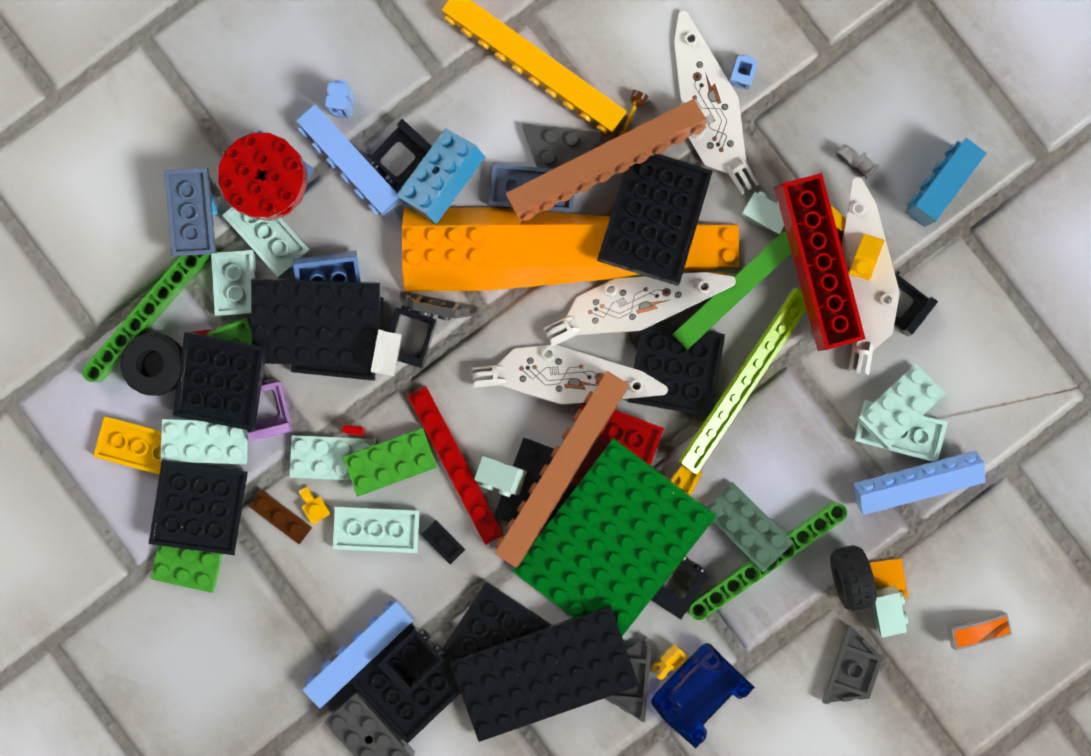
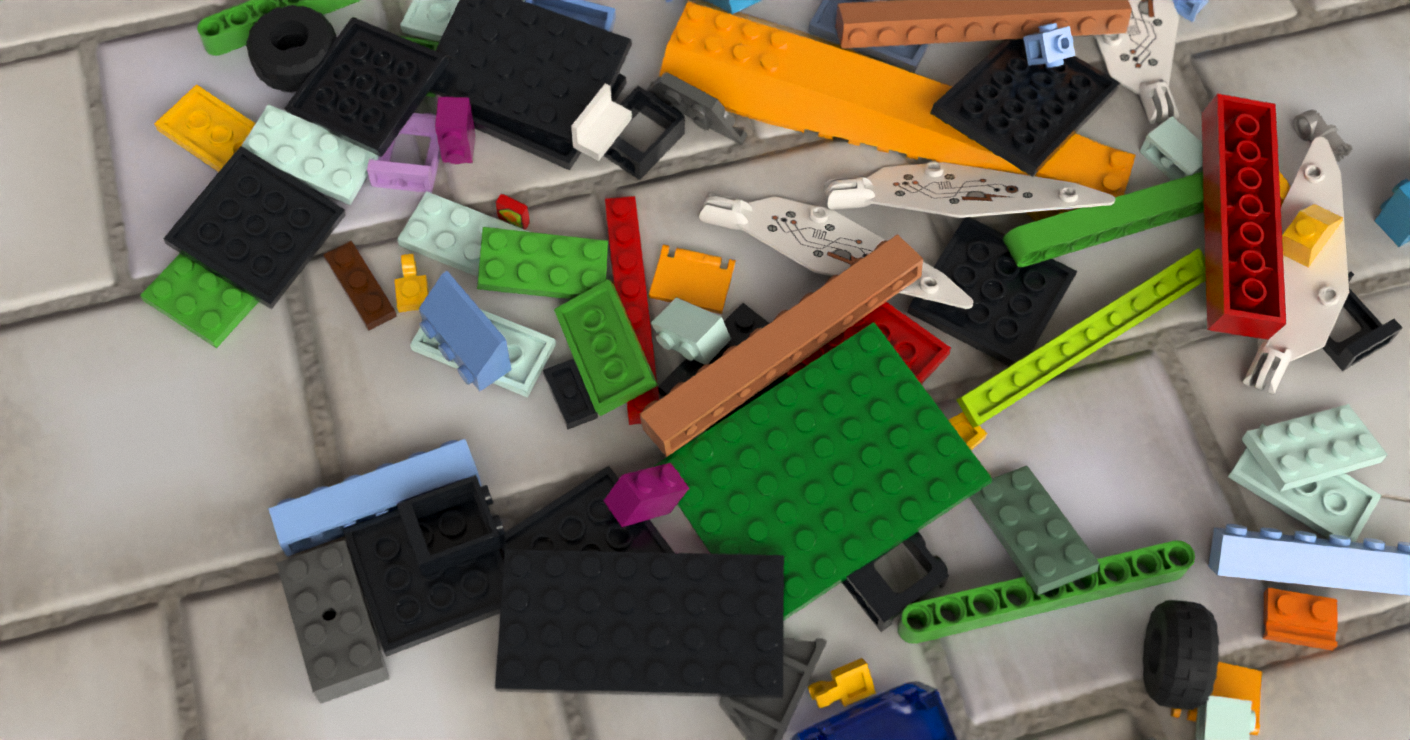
camera: 15 degrees right, 25 degrees down
(292, 390) = (455, 130): none -> magenta brick
(365, 538) = (464, 333): none -> medium blue slope
(452, 506) = (605, 347): none -> bright green plate
(485, 430) = (692, 278): none -> light orange piece
(517, 597) = (646, 494): none -> magenta brick
(658, 171) = (1049, 45): none -> light blue brick
(916, 517) = (1300, 619): none -> orange plate

